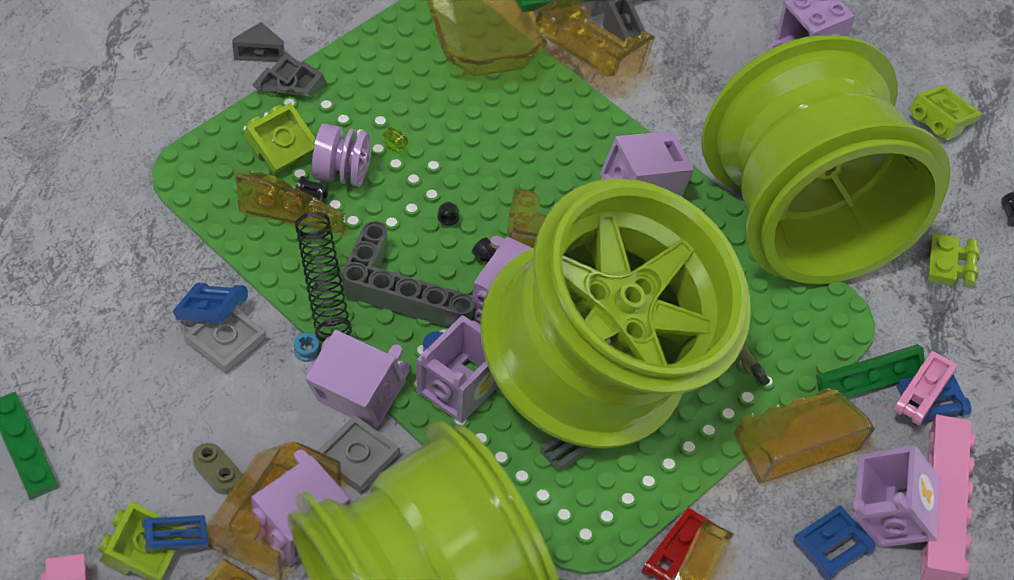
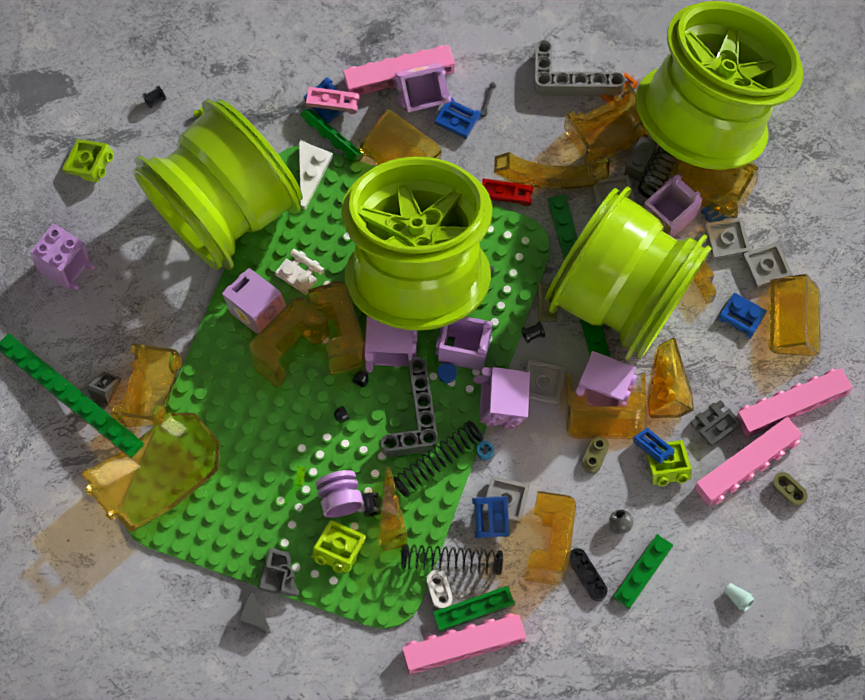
camera: 115 degrees left, 15 degrees up
(78, 213) = (463, 644): none -> bright pink brick
(87, 387) = (590, 589): none -> black beam
(101, 444) = (621, 521): none -> dark grey piece
(113, 242) = (473, 608): none -> green plate
(145, 364) = (559, 513): none -> clear yellow windscreen
(150, 280) = (498, 559): none -> black piece
(163, 219) = (439, 590): none -> white plate
(565, 152) = (292, 323): none -> clear yellow windscreen
(827, 329) = (312, 168): none -> white wing

